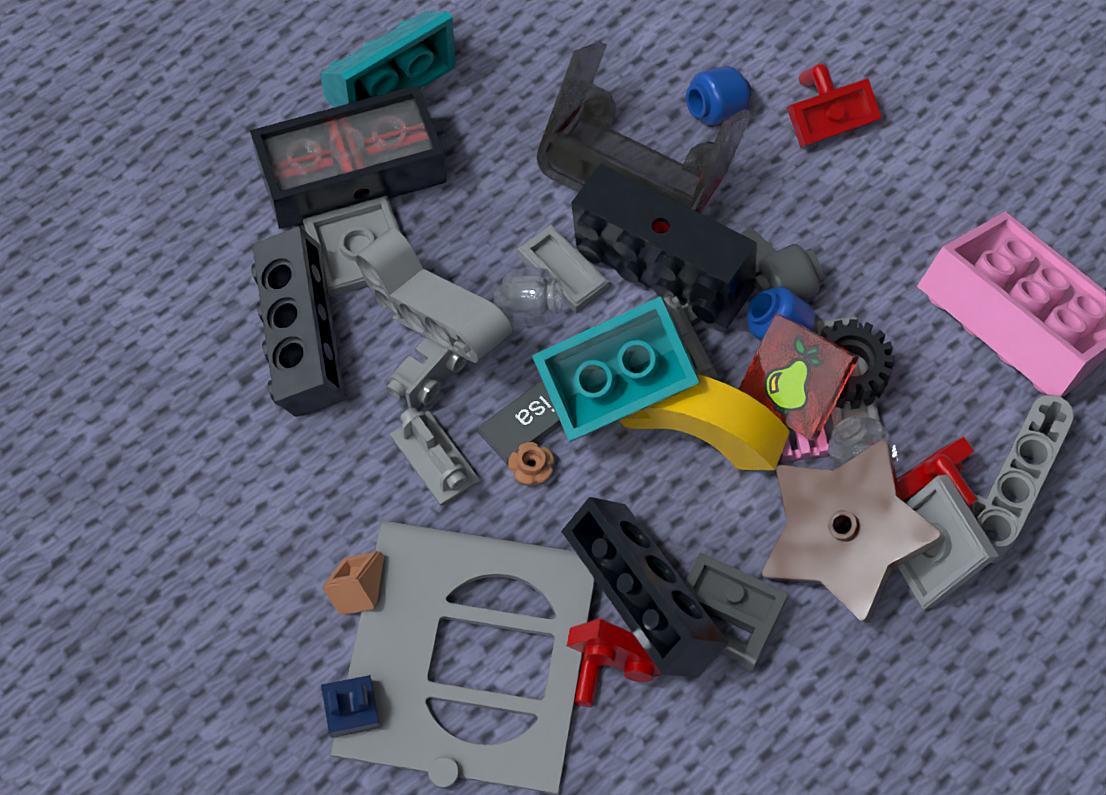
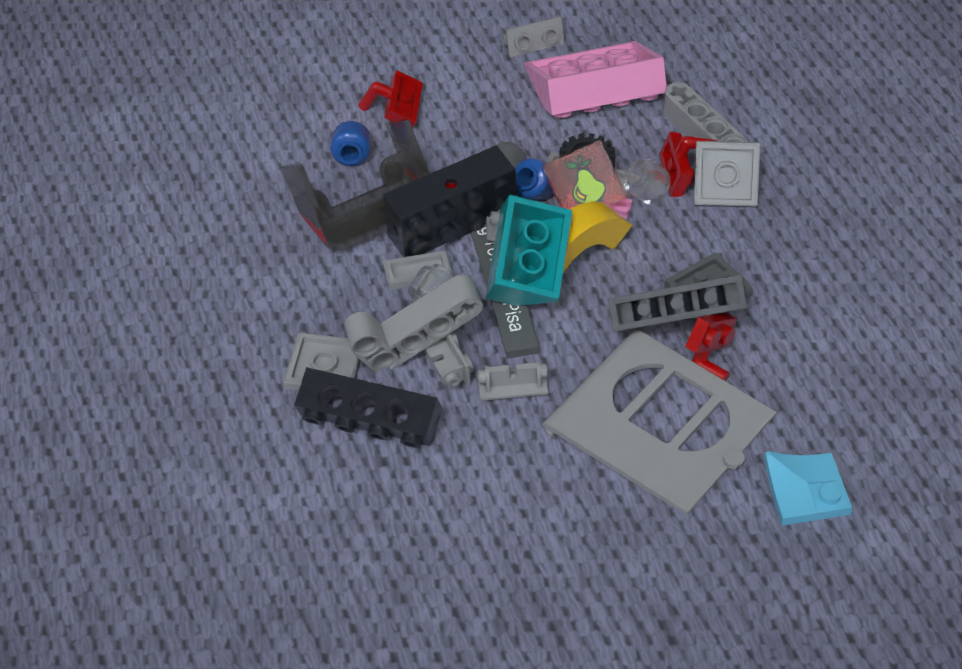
camera: 60 degrees left, 15 degrees down
(349, 155) = (259, 333): brick -> none
(350, 706) = (664, 483): dark blue tile -> none
(355, 583) = (579, 451): nougat slope -> none
(405, 57) = (199, 286): teal slope -> none
(531, 475) = (550, 343): nougat plate -> none
(881, 533) = (691, 225): plate -> none
(1054, 199) = (534, 36): none -> light grey hinge

